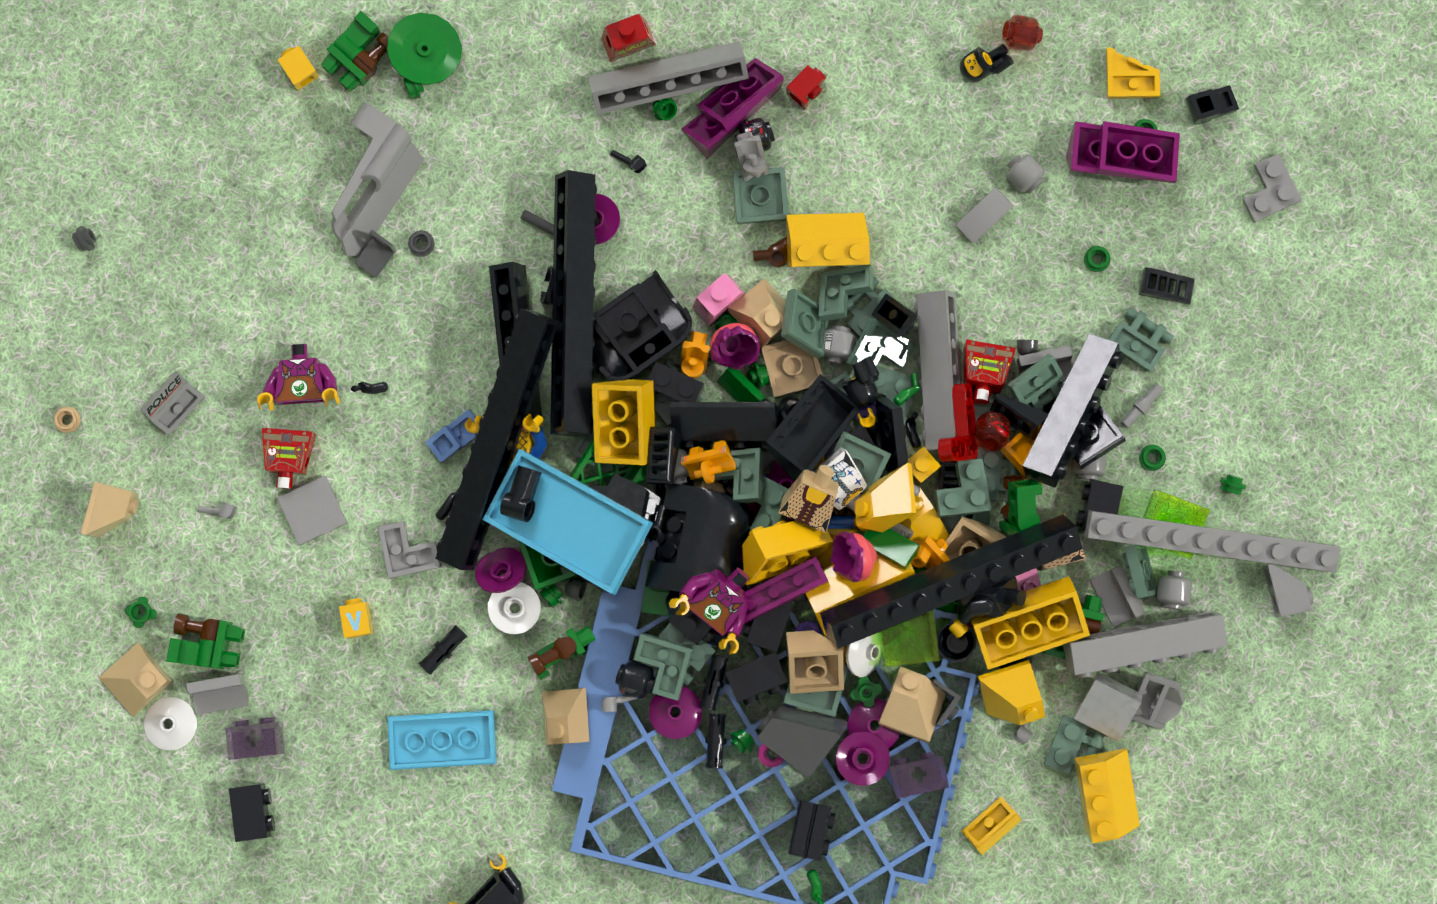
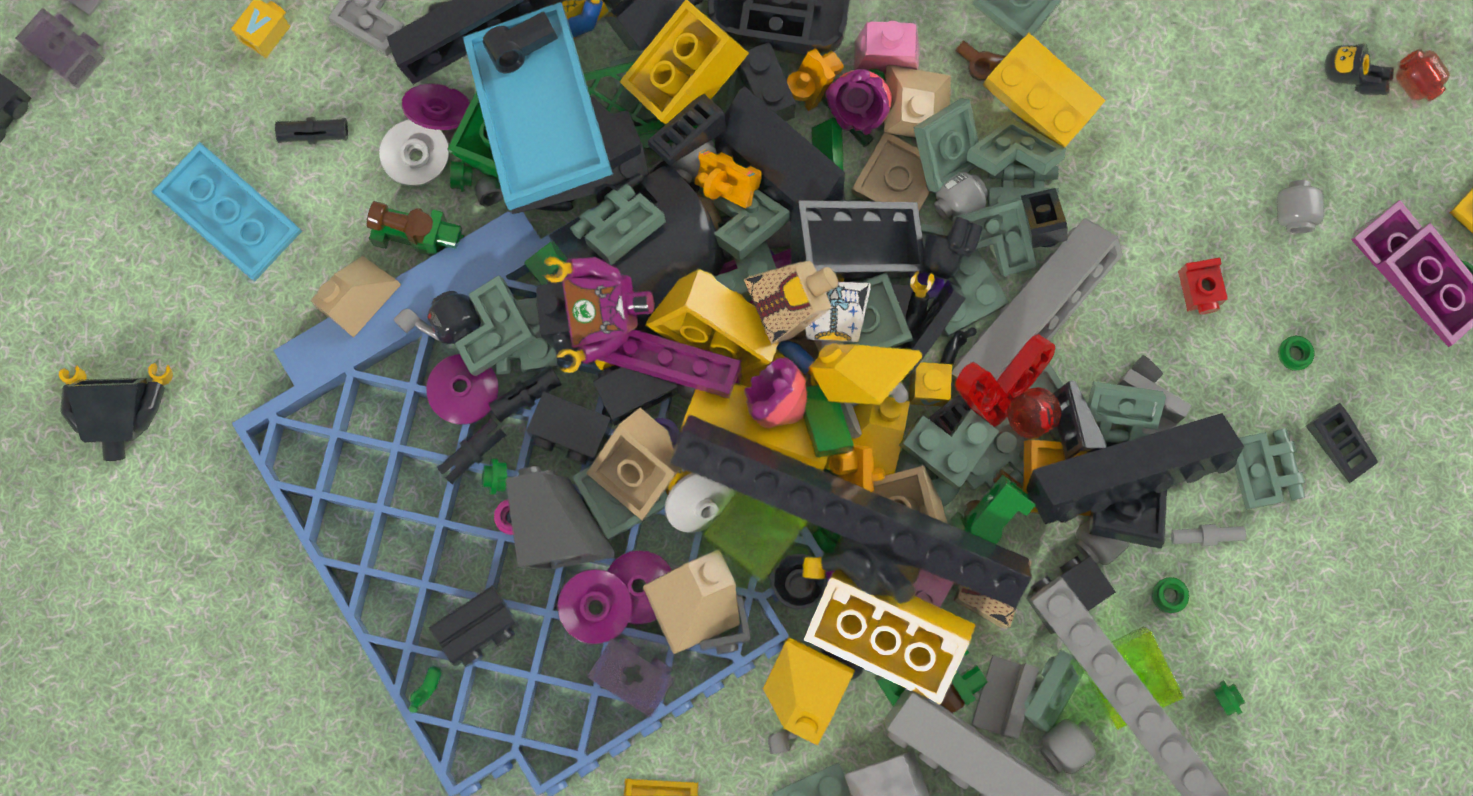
camera: 40 degrees right, 5 degrees down
(686, 546) = (623, 229): none -> sand green plate
(758, 375) = (855, 155): green plate -> none
(862, 684) = (659, 554): green plate -> none
(907, 393) = (983, 302): green piece -> none
(984, 215) = (1222, 208): light grey slope -> none
(986, 368) = (1087, 352): red torso -> none
(1004, 269) = (1195, 295): none -> red brick

